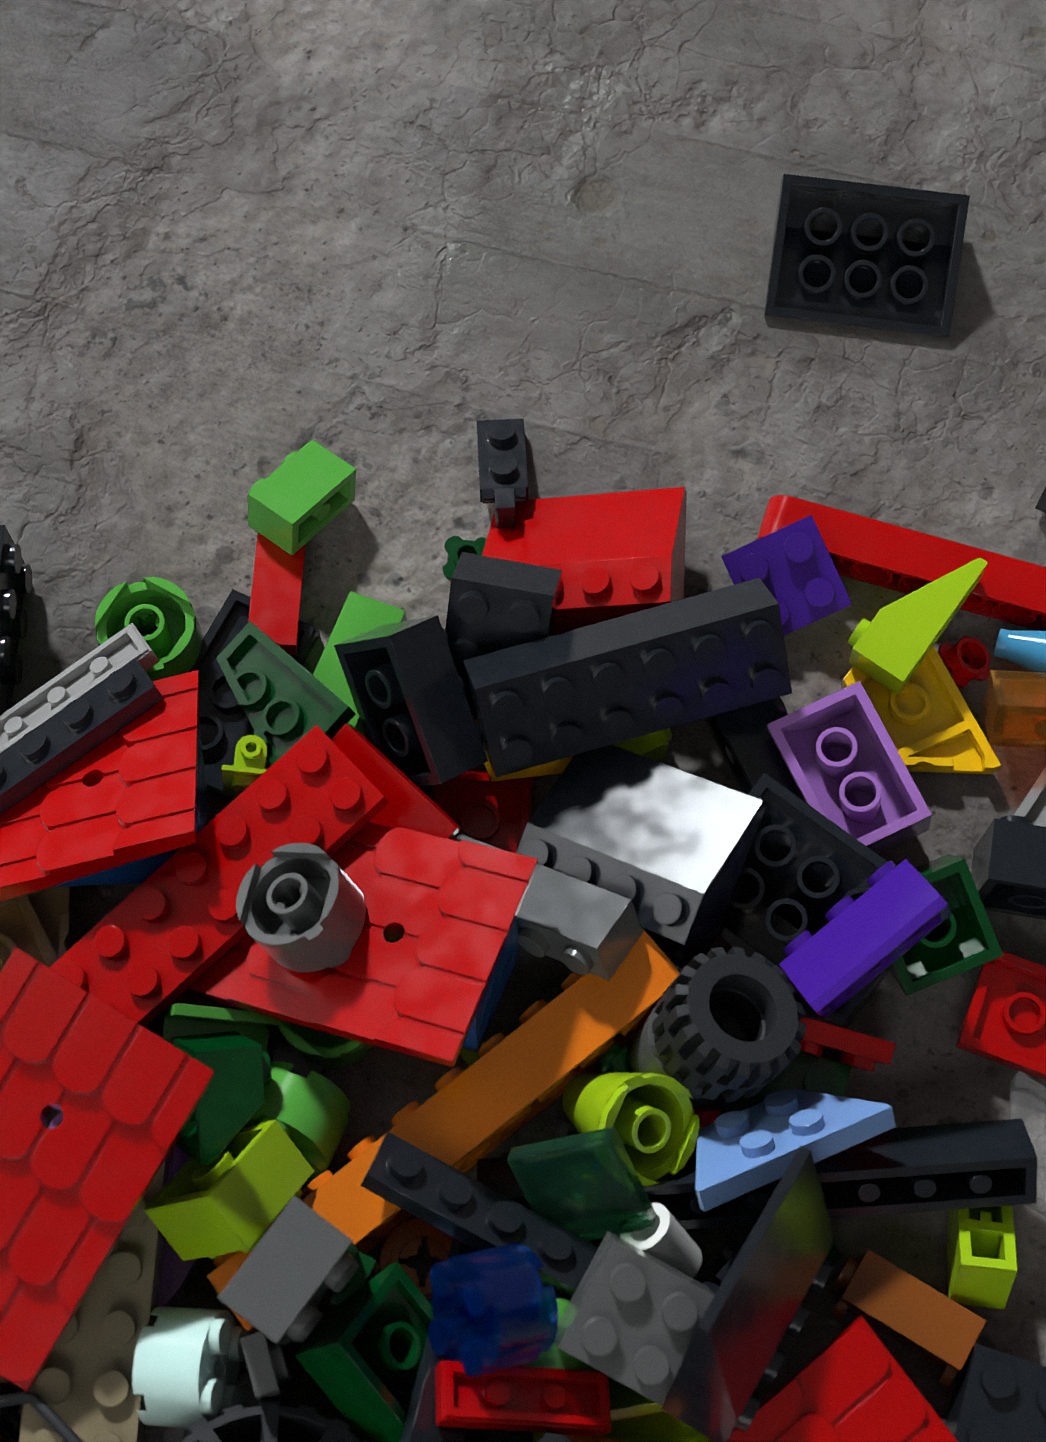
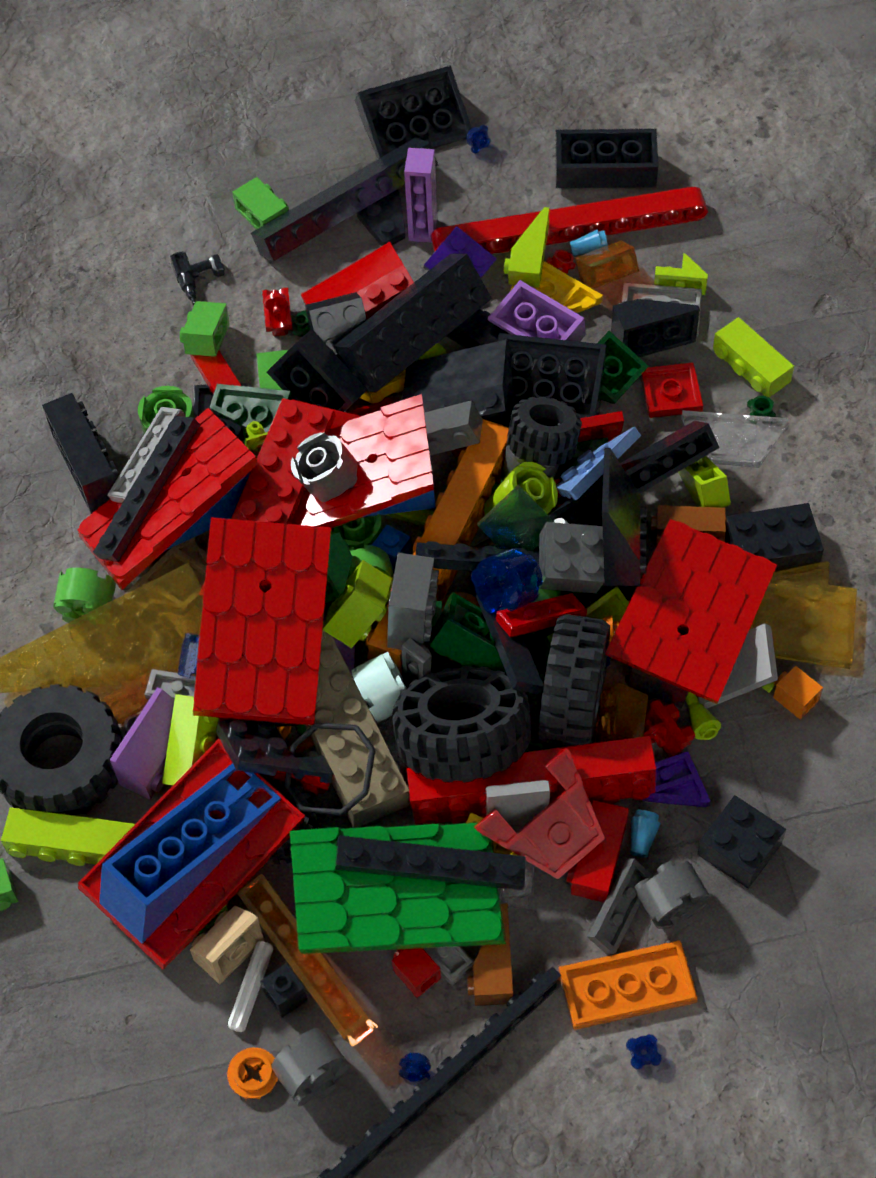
camera: 25 degrees left, 10 degrees down
(336, 371) = (186, 273): none -> black piece
(373, 1081) = (392, 543): none -> blue brick
(436, 519) = (277, 311): none -> red hips
(502, 467) = (295, 276): black hinge -> none
(519, 308) = (258, 203): none -> bright green brick
(663, 361) = (335, 203): none -> black brick
(712, 427) = (384, 219): none -> black wing
(778, 426) = (421, 194): none -> medium lavender brick
(863, 936) = (585, 368): dark purple slope -> none
(951, 349) = (478, 138): none -> clear blue plate

